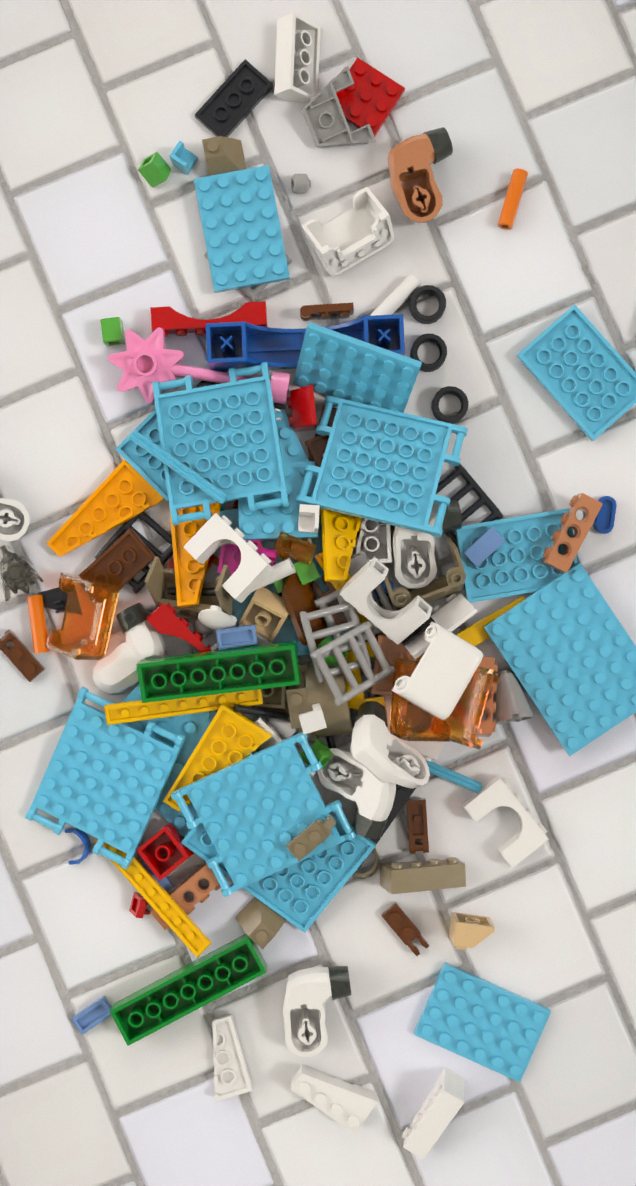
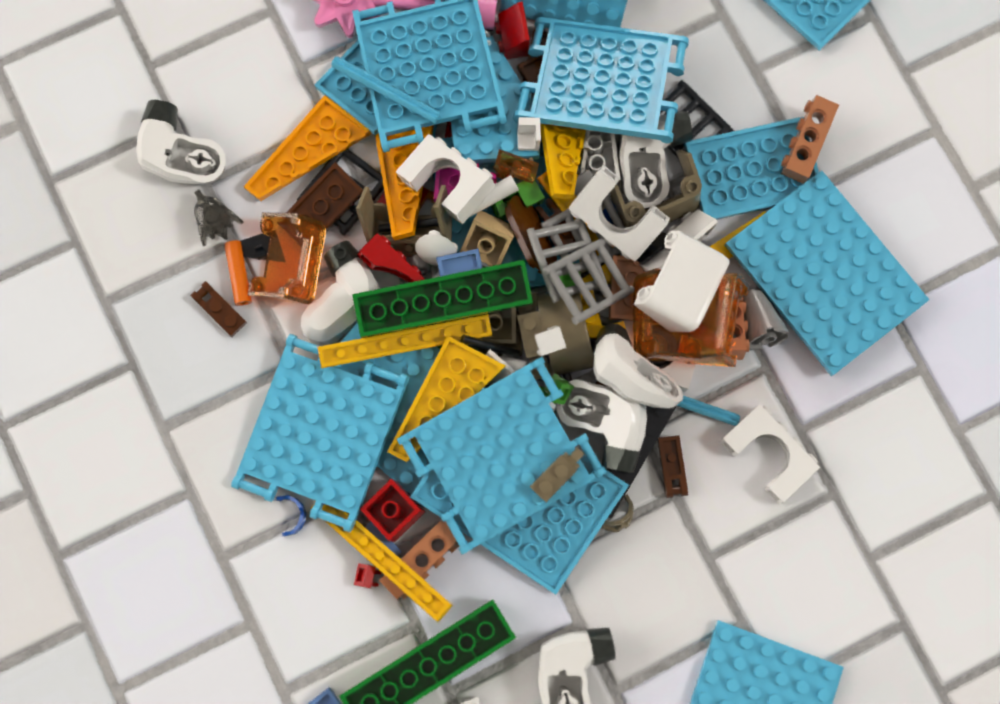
camera: 15 degrees left, 10 degrees down
(260, 922) = (504, 584): dark tan slope -> none
(404, 927) = (668, 583): reddish brown hinge -> none
(422, 875) = (683, 518): dark tan wedge -> none
(449, 390) = (667, 7): black tyre -> none
(469, 930) = (740, 575): tan slope -> none
(484, 546) = (717, 159): medium blue tile -> none
(606, 516) = (842, 125): blue tile -> none

